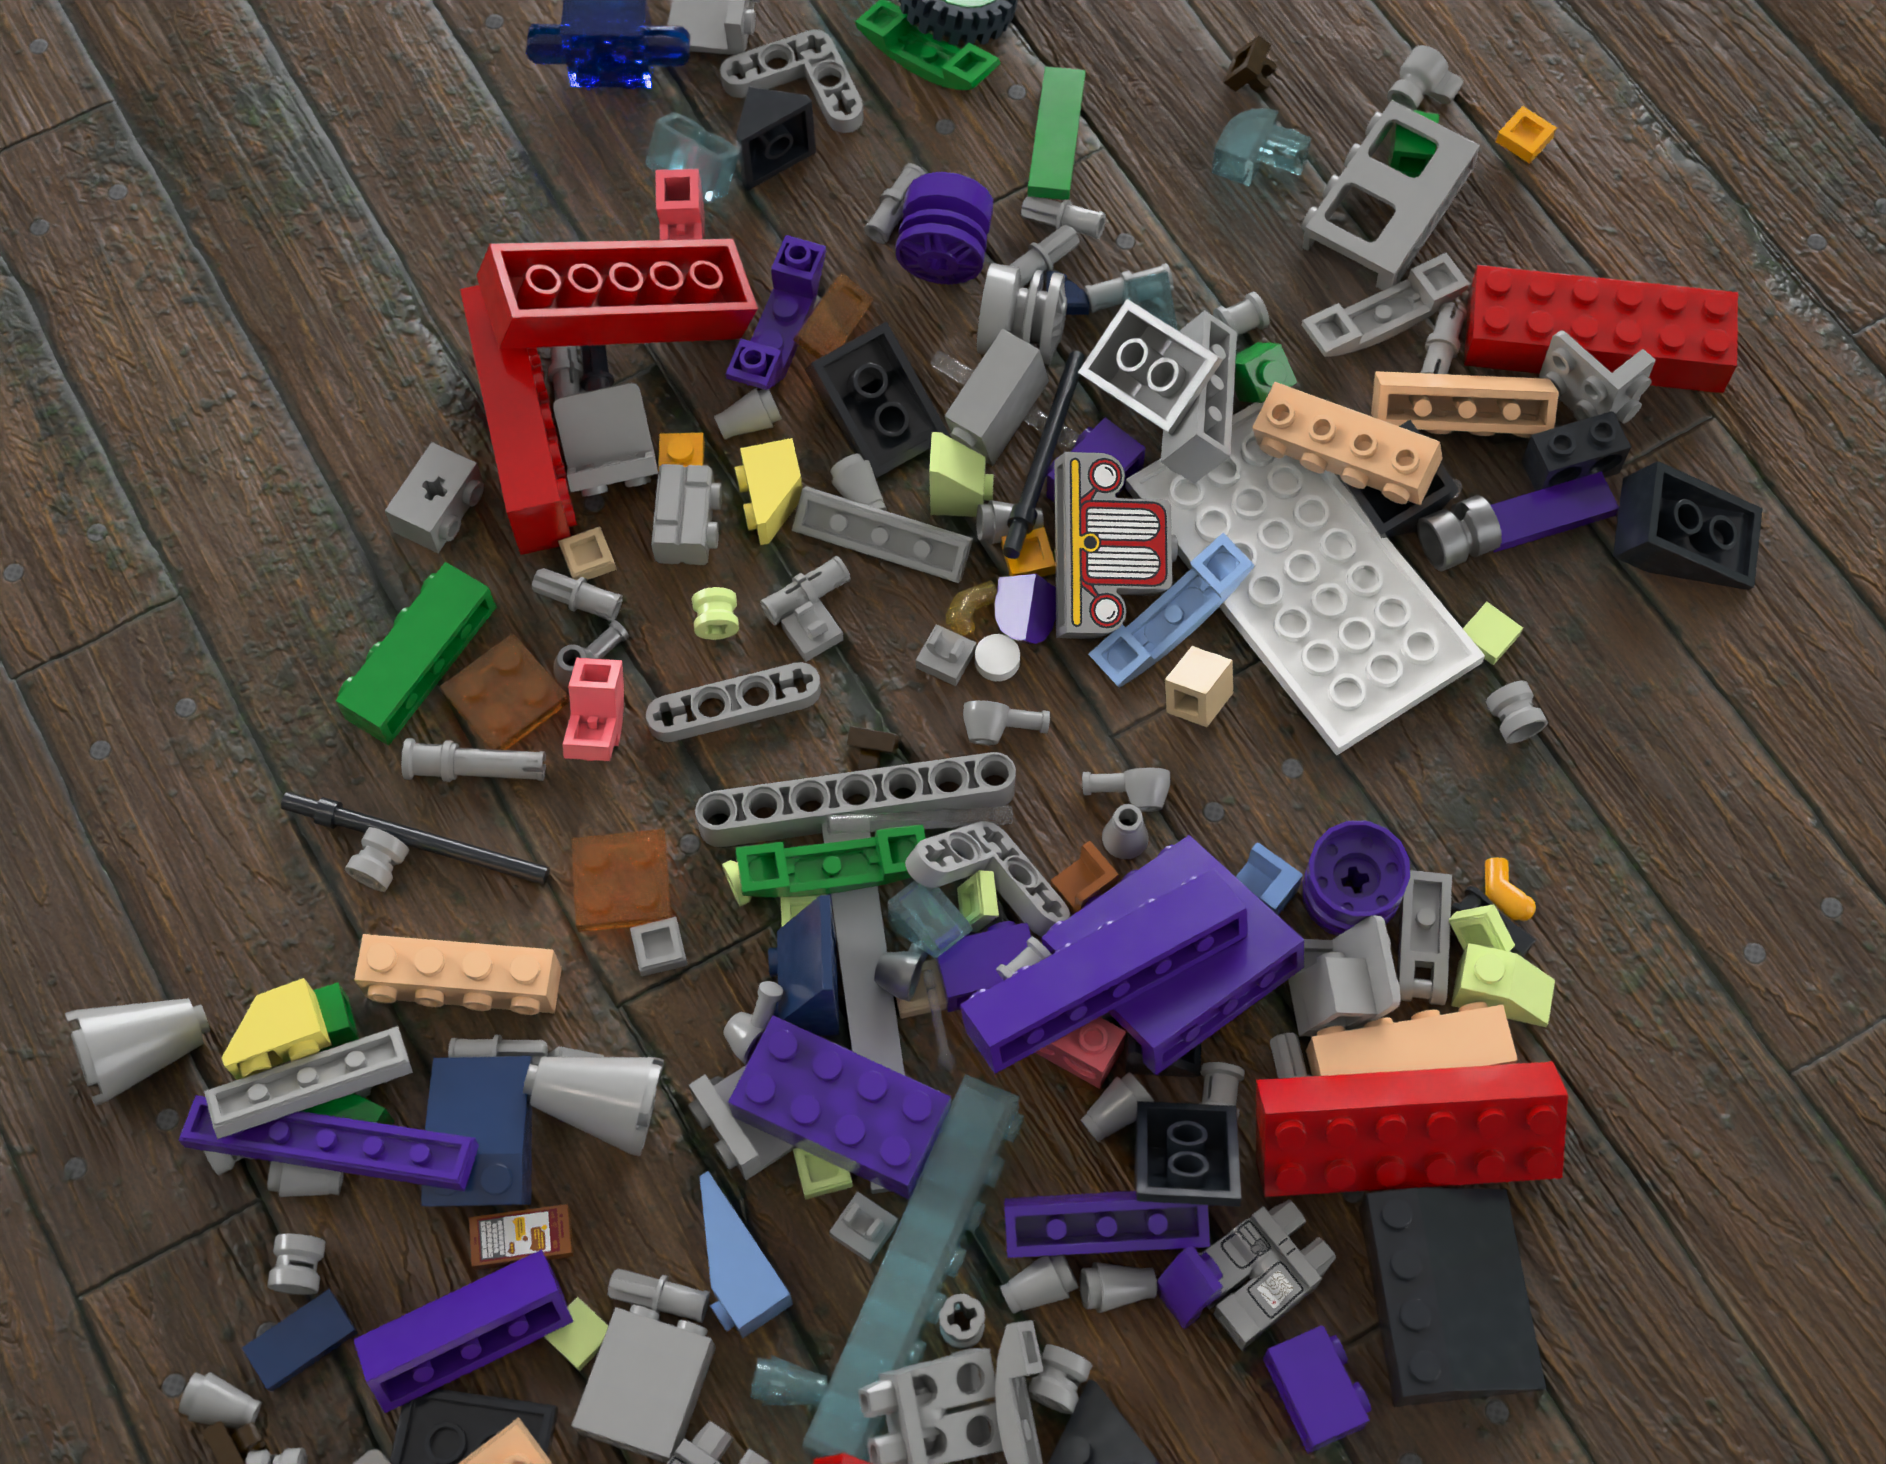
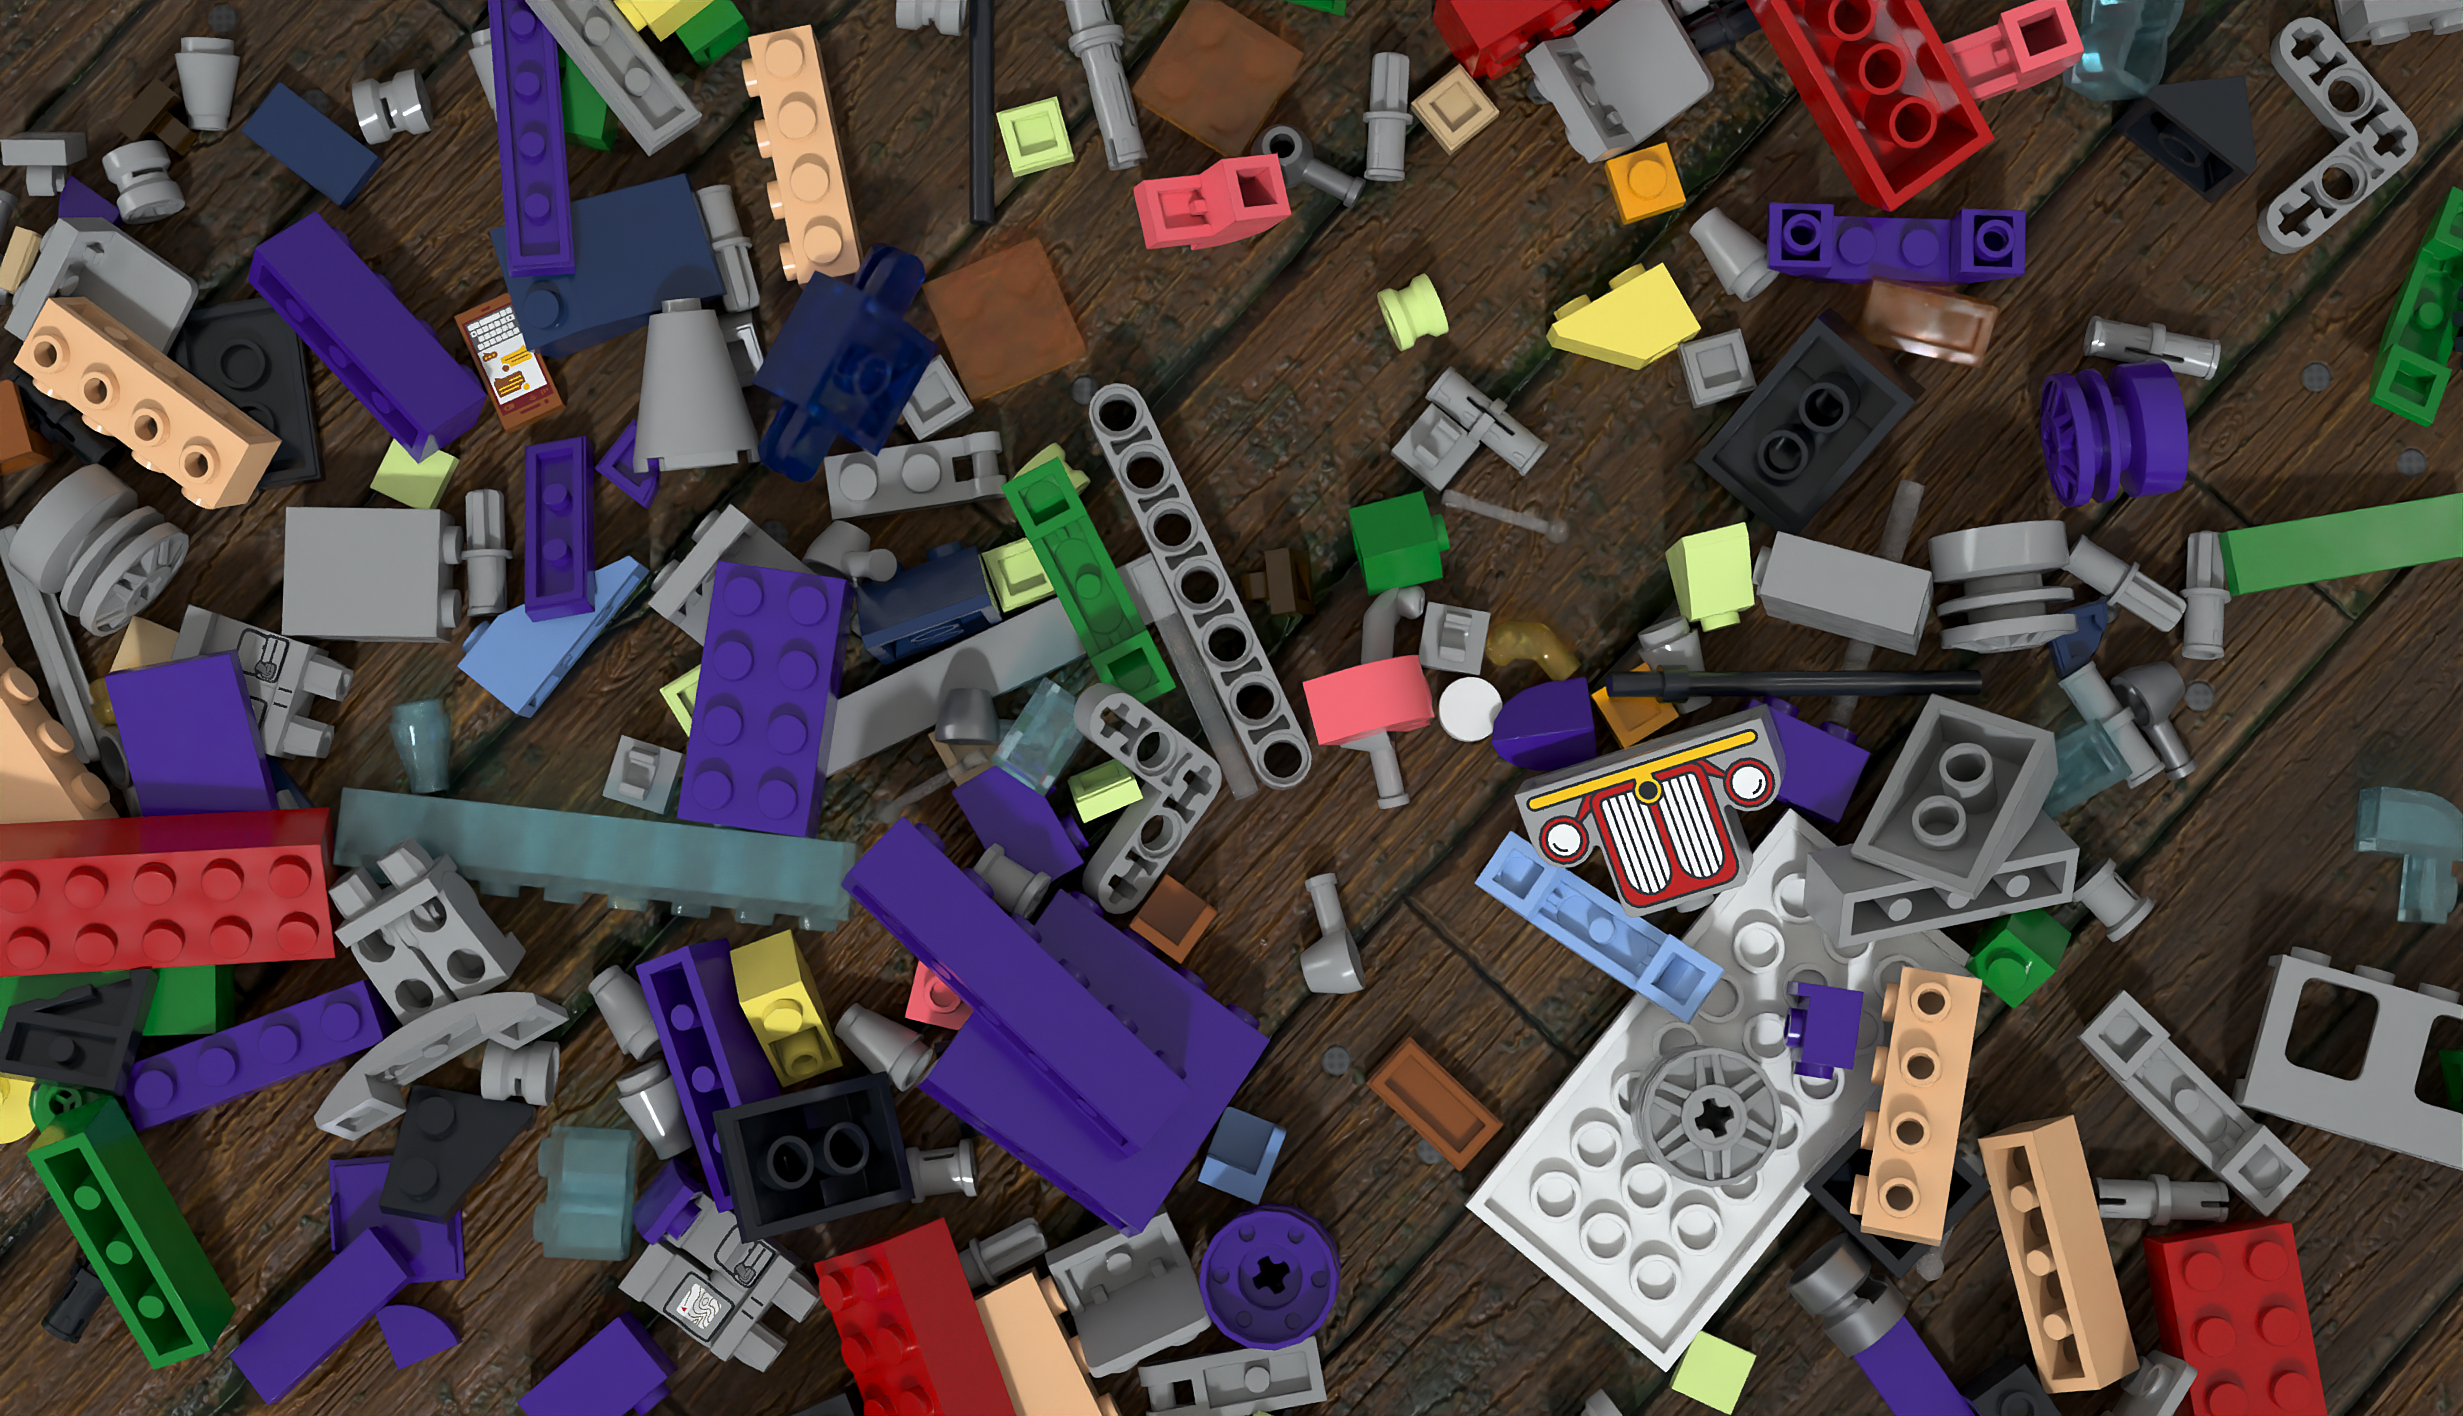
camera: 70 degrees right, 20 degrees up
(499, 823) = (1035, 136): none -> yellowish green tile
(615, 981) = (844, 363): none -> clear blue brick
(630, 1171) = (618, 468): none -> dark purple tile
(661, 1225) = (559, 529): none -> dark purple tile
(684, 514) = (1549, 221): light grey brick -> none
(710, 973) = (913, 477): none -> light grey plate
(736, 709) = (1304, 375): light grey beam -> none
(819, 447) = (1716, 368): none -> light grey tile
(856, 481) = (1667, 443): light grey cone -> none
(869, 664) = (1398, 542): none -> green brick
(882, 534) = (1602, 497): light grey tile -> none
(893, 573) = (1555, 530): none -> clear hinge
(919, 693) = (1383, 617): none -> light grey arm
(971, 1309) = (537, 927): light grey bush -> none
(973, 700) = (1369, 700): none -> coral brick
(1067, 1166) = (785, 1008): none -> light yellow slope
(1115, 258) = (2153, 694): none -> flat silver bar
(1125, 833) = (1238, 952): light grey cone -> none
(1166, 1354) = (588, 1192): none -> clear light blue brick
(1199, 686) = (1498, 995): tan brick -> none
(1261, 755) = (1434, 1103): none -> dark orange tile
(1278, 491) = (1822, 1028): none -> dark purple brick
(1313, 591) = (1671, 1097): none -> light grey wheel
(1337, 991) = (1104, 1290): light grey brick -> none

